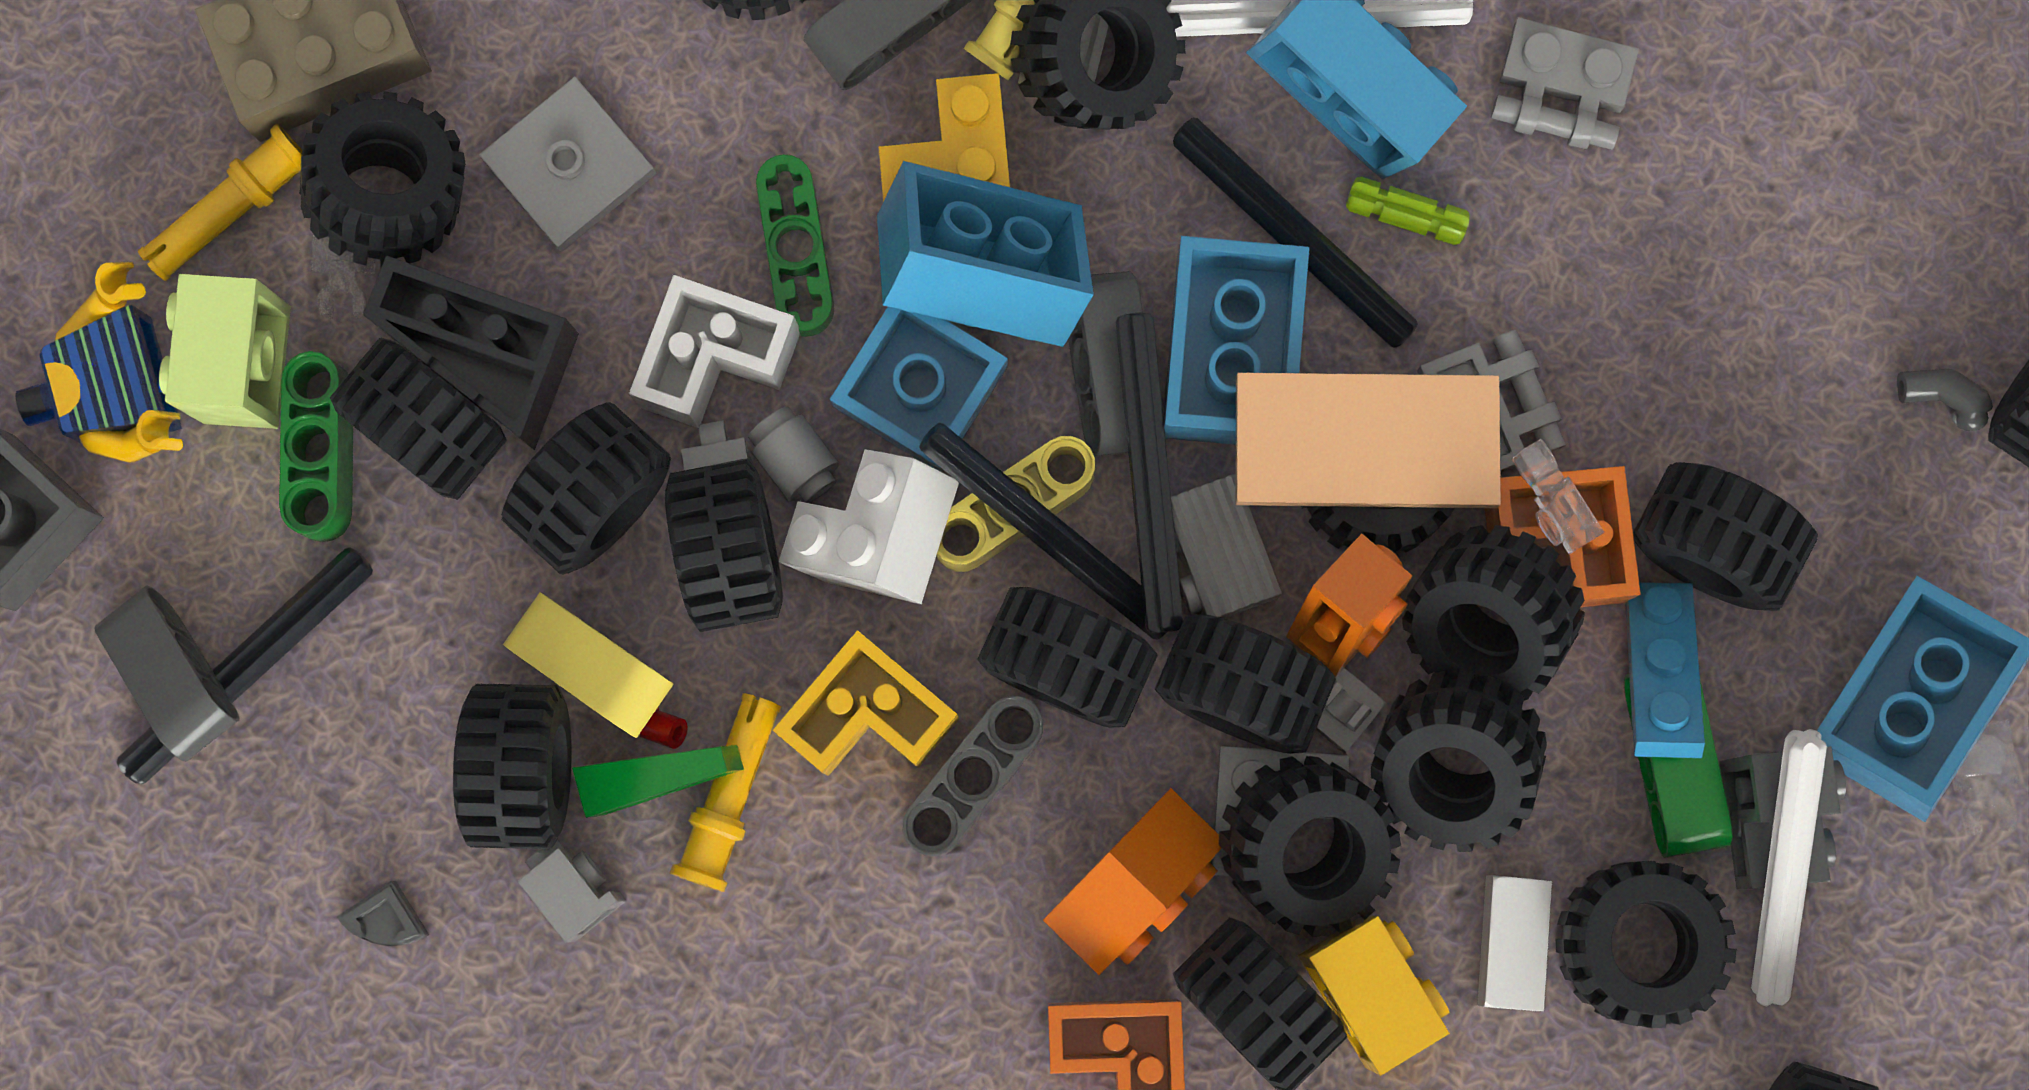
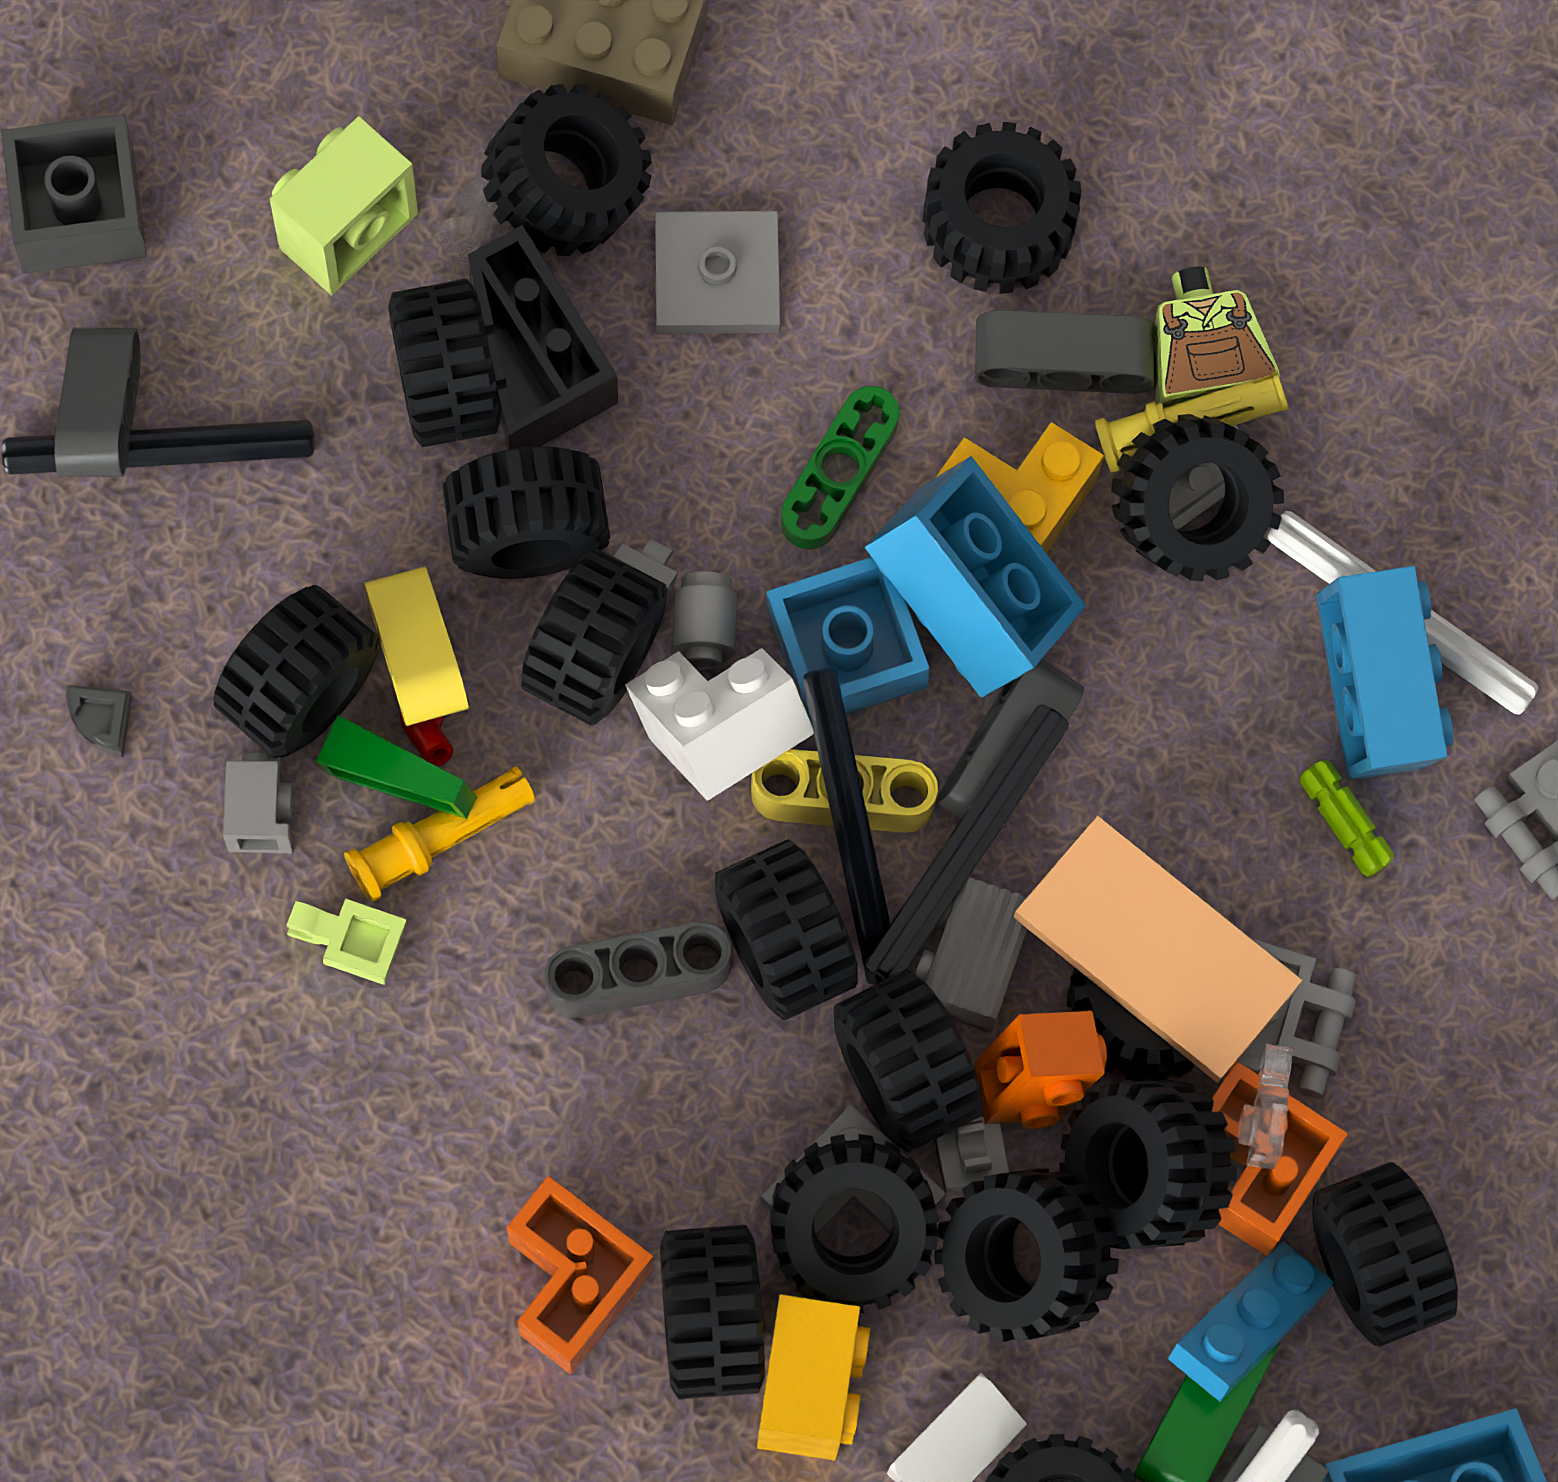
camera: 30 degrees right, 10 degrees down
(105, 376) = (238, 153): torso -> none
(248, 184) = (464, 99): yellow pin -> none
(330, 475) = (341, 356): green beam -> none
(707, 333) = (707, 474): white brick -> none
(736, 930) = (357, 940): none -> yellowish green plate
(862, 692) = (598, 833): yellow brick -> none
(1138, 884) = (695, 1146): orange brick -> none
(1231, 314) = (1134, 772): dark azure brick -> none
(1291, 228) = (1241, 764): black axle -> none

